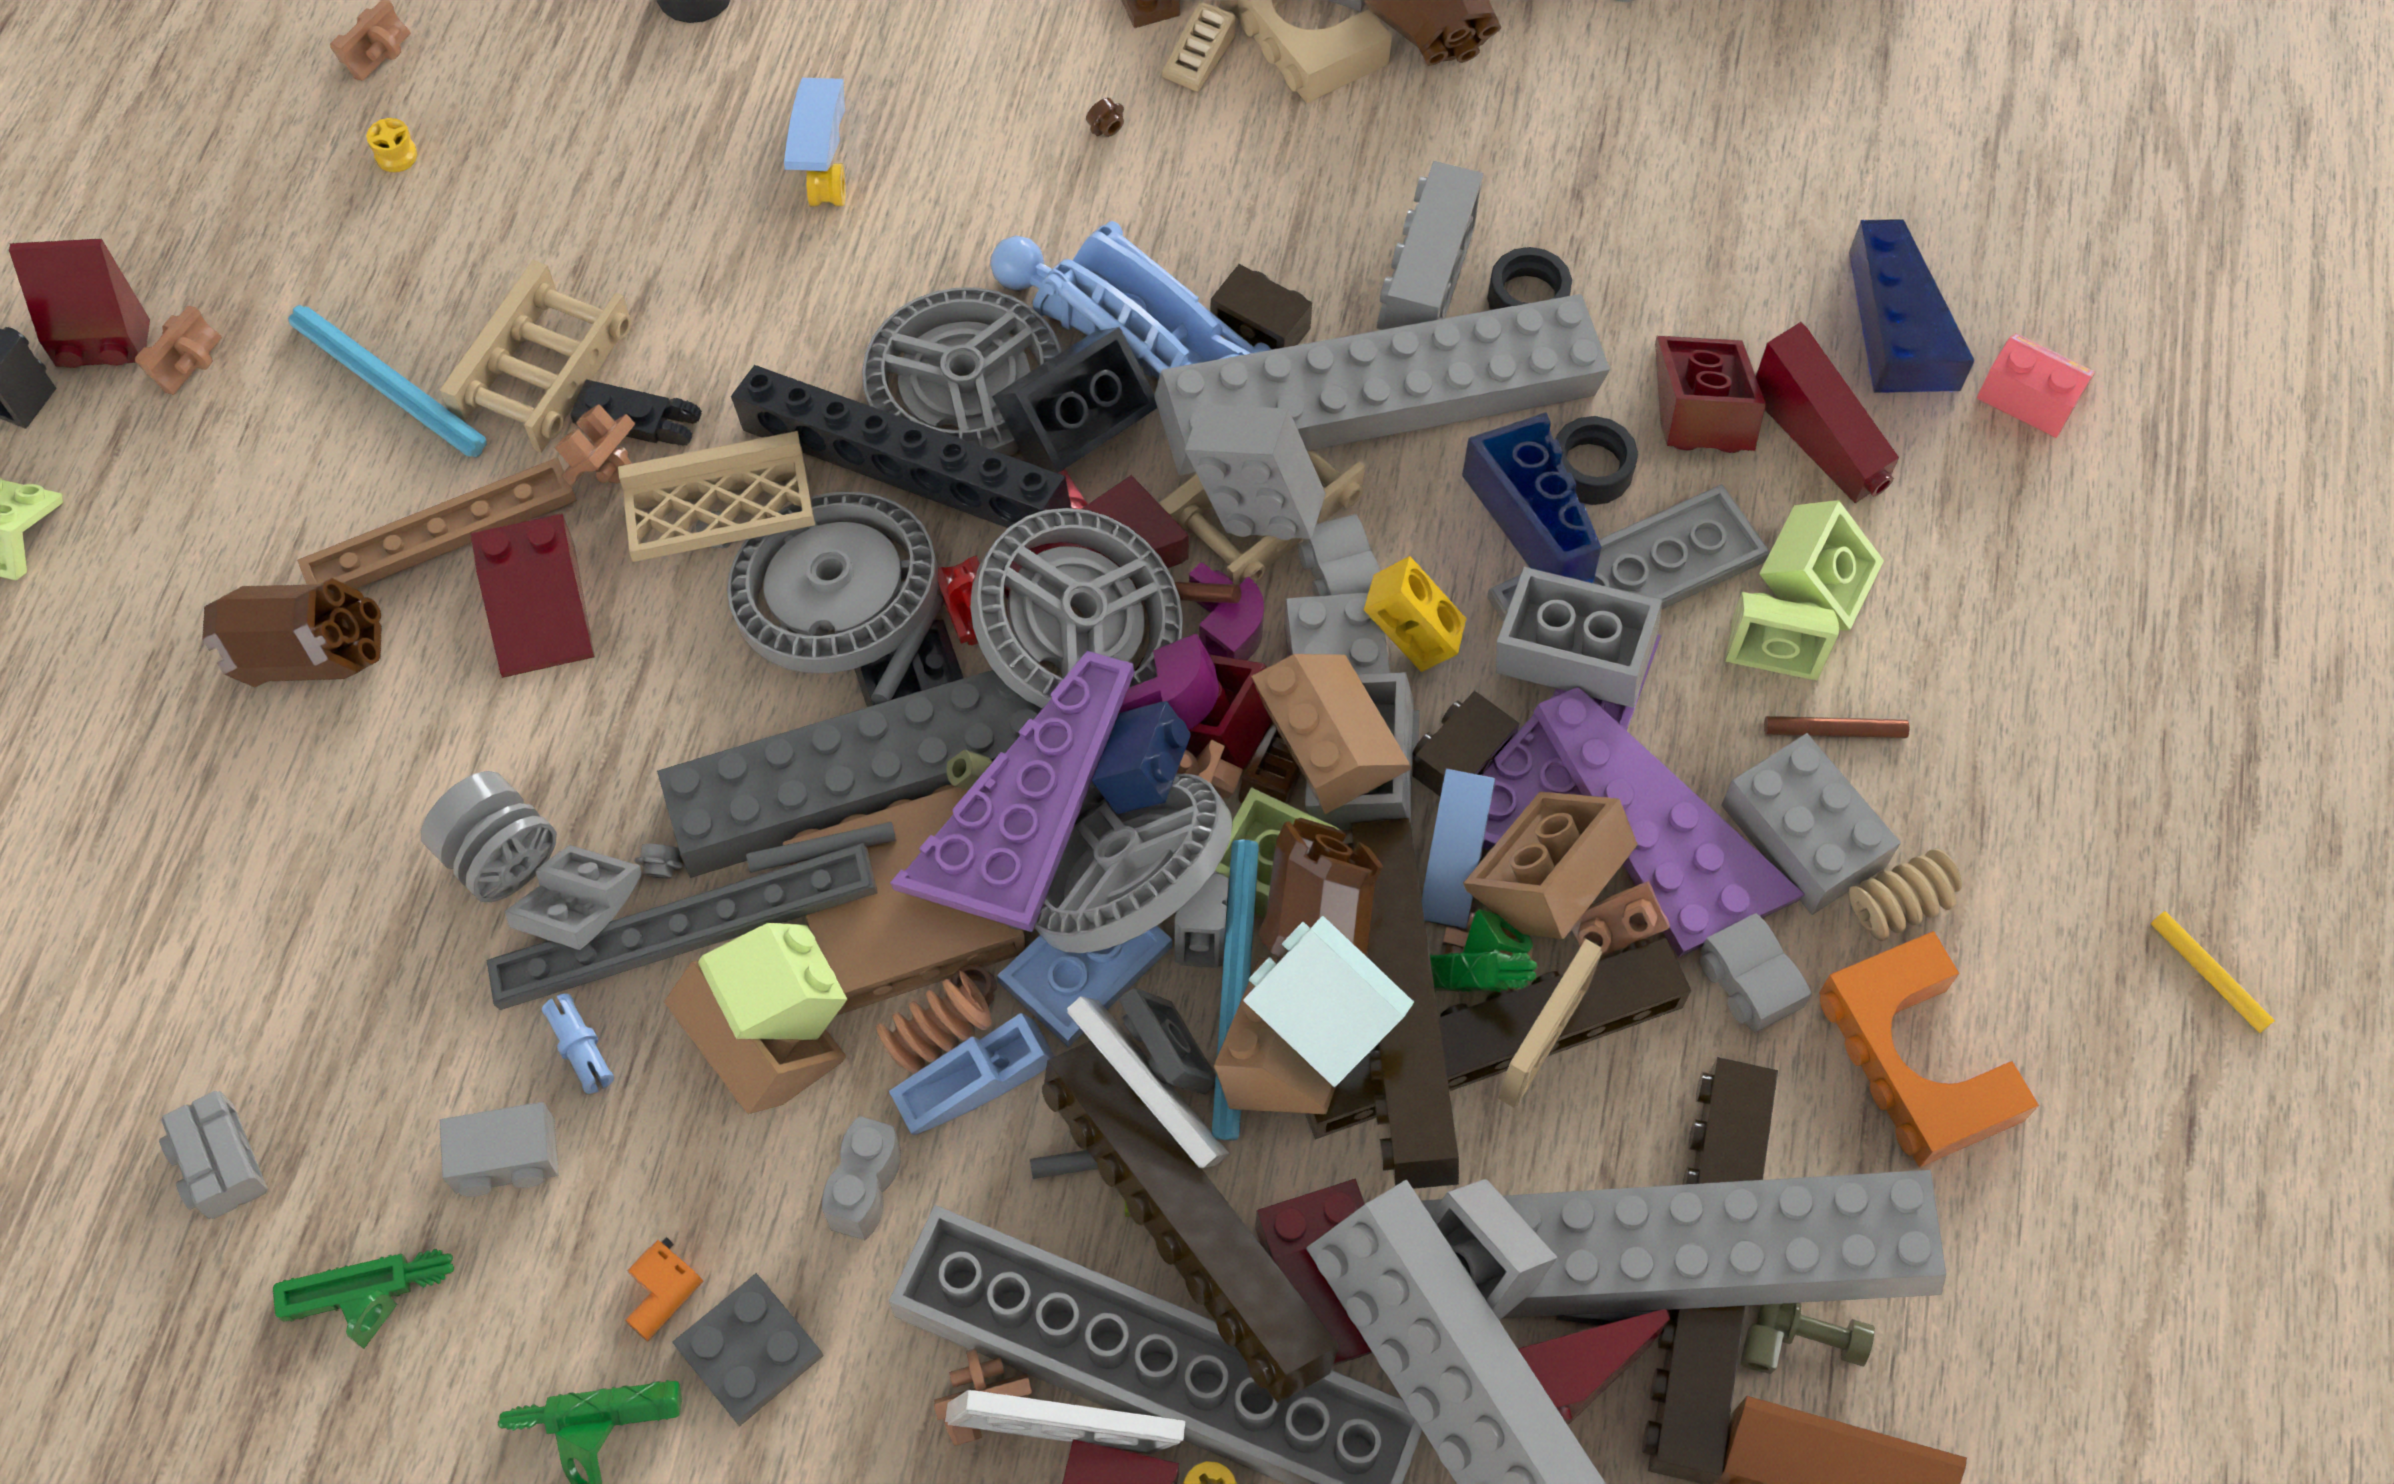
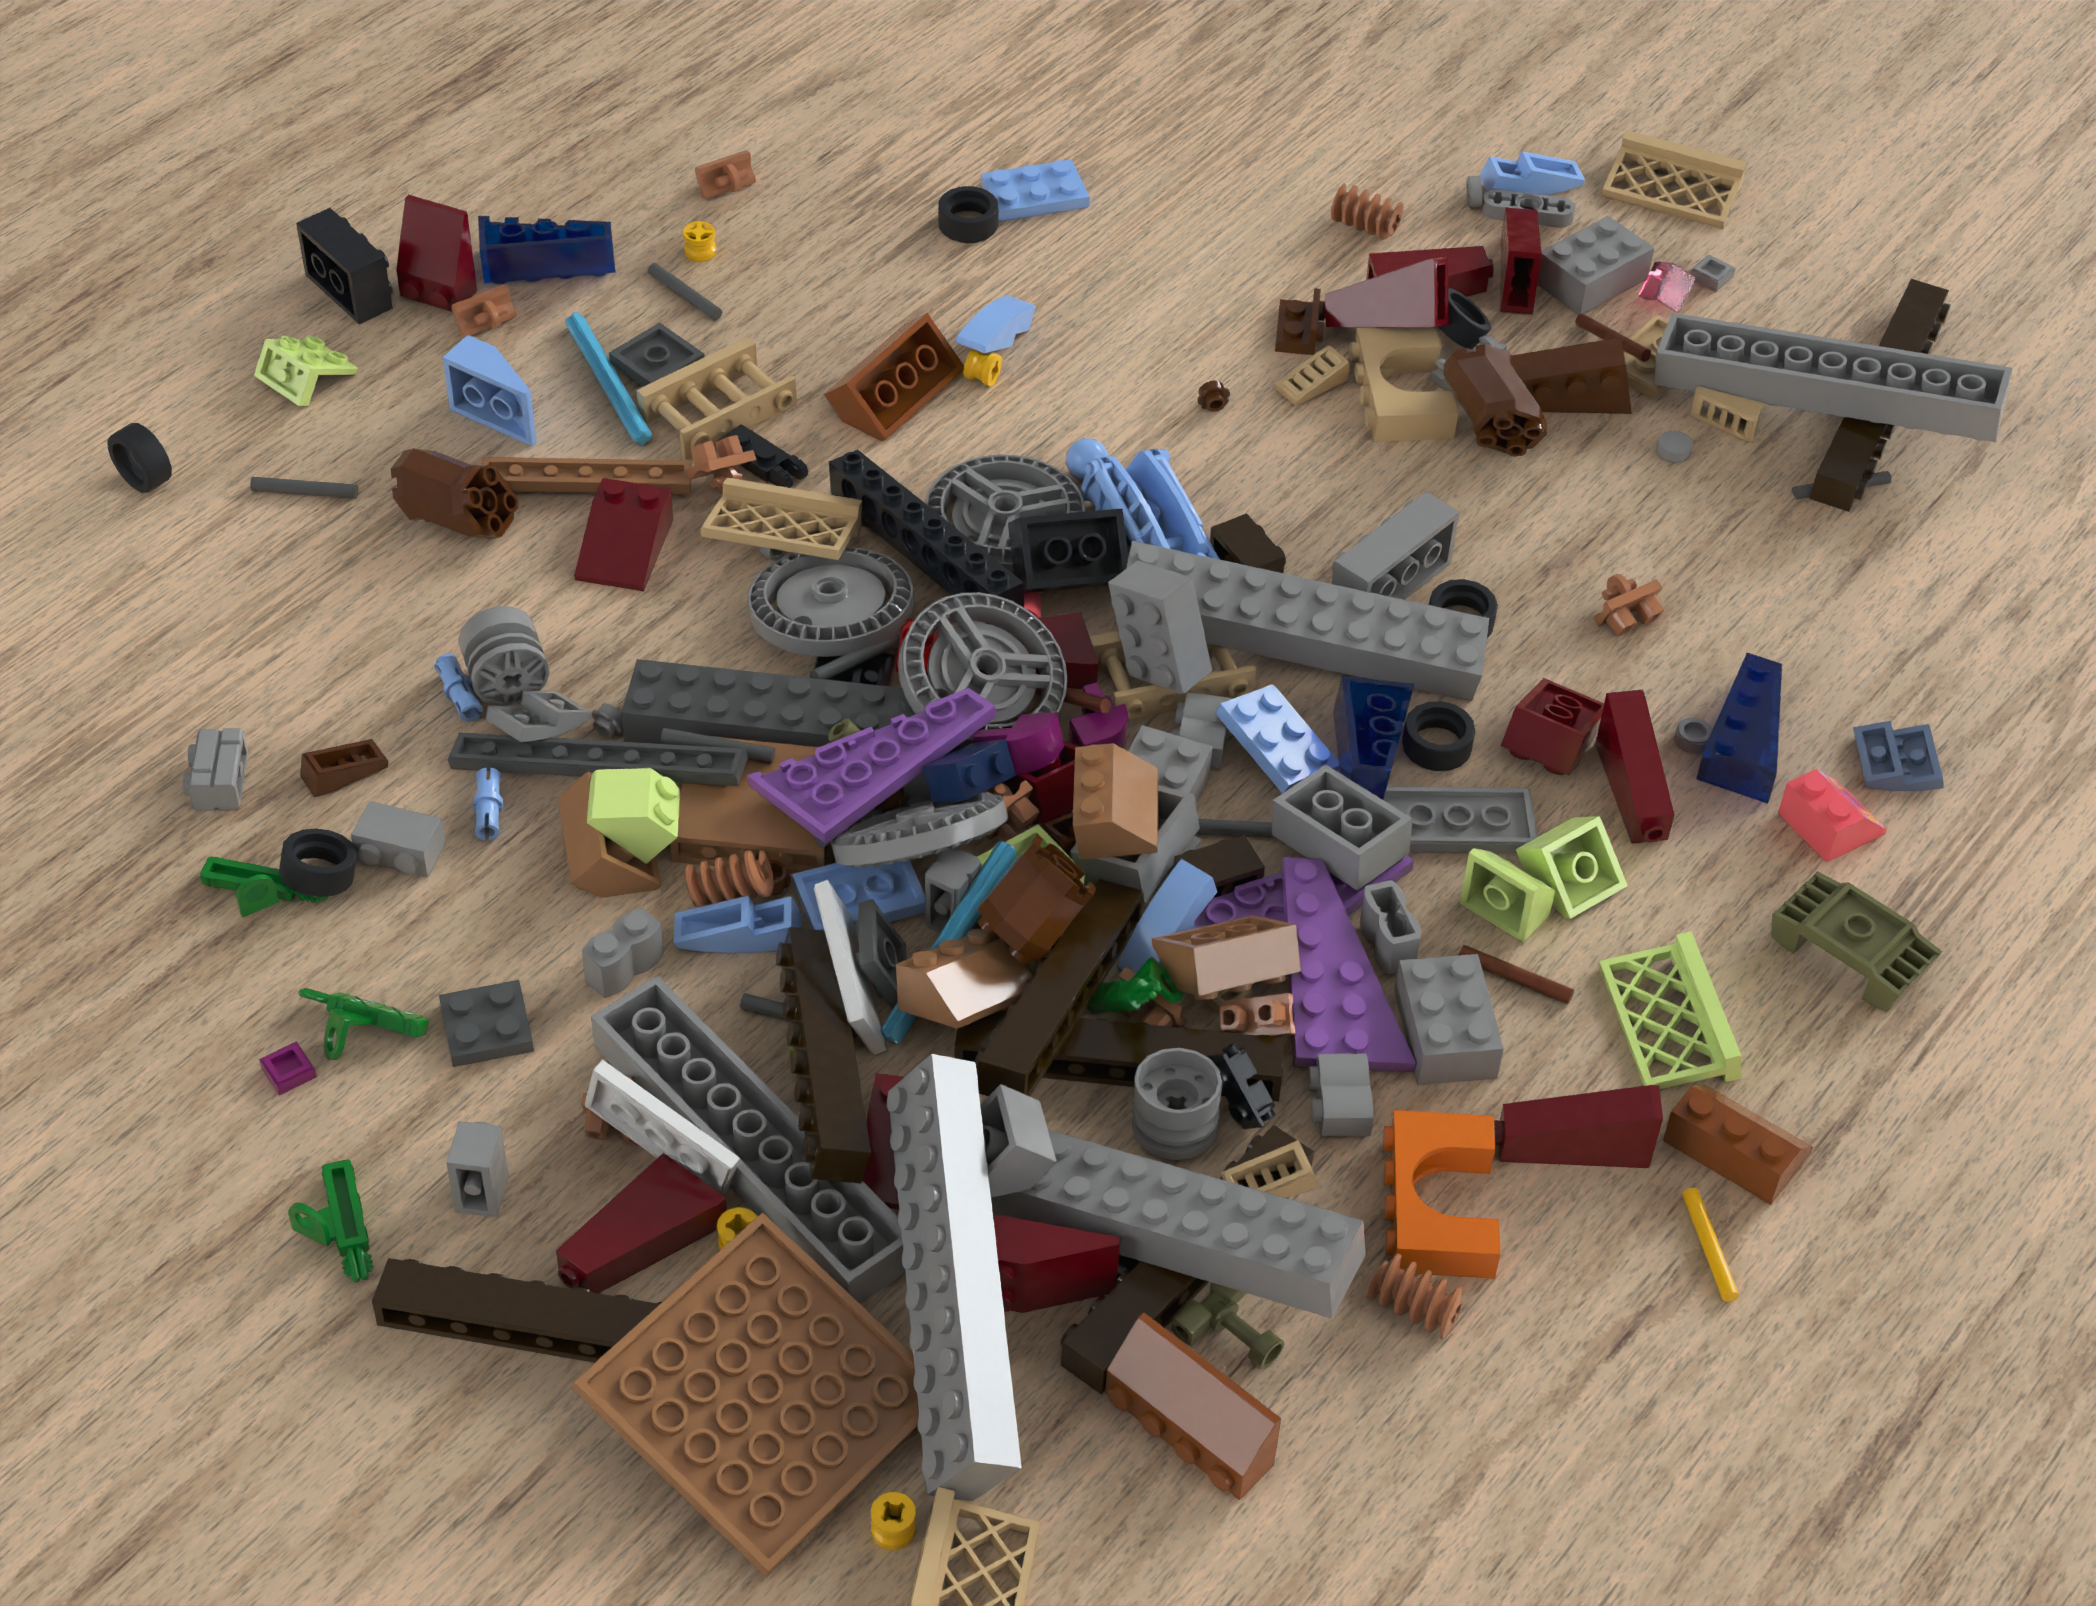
camera: 25 degrees right, 15 degrees down
(89, 694) = (304, 487): none -> dark grey bar
(208, 234) = (544, 249): none -> clear blue wedge
(254, 465) = (488, 389): none -> light blue slope
(365, 1097) = (328, 768): none -> reddish brown slope
(411, 220) = (685, 291): none -> dark grey bar
(426, 1264) = (314, 879): none -> black tyre
(431, 328) = (654, 355): none -> dark grey plate
(449, 897) = (458, 687): none -> light blue pin
(669, 1285) = (457, 963): orange piece -> none
(734, 243) = (895, 379): none -> dark orange slope
(1327, 999) = (995, 947): light aqua brick -> none
(1415, 614) = (1230, 770): yellow brick -> none
(1446, 545) = (1275, 736): none -> light blue plate
(1453, 672) = (1235, 828): none -> dark grey bar
(1550, 1024) = (1169, 1024): tan tile -> none
(1608, 1055) = (1176, 1103): none -> light grey wheel
(1668, 1036) = (1247, 1104): none -> black hinge
(1682, 194) = (1623, 598): none -> nougat hips
(1682, 731) = (1389, 925): none -> light grey brick
(1785, 1102) = (1280, 1160): none -> tan slope
(1845, 340) = (1692, 735): none -> light grey tile
(1906, 893) = (1488, 1090): tan piece -> none
(1982, 1191) = (1416, 1295): none -> nougat piece
(2029, 897) = (1583, 1129): none -> dark red slope
(2056, 686) = (1705, 1013): none -> yellowish green fence
(2059, 277) = (1898, 758): none -> sand blue slope
(2154, 522) = (1858, 934): none -> olive plate
(2173, 833) = (1735, 1142): none -> dark orange slope

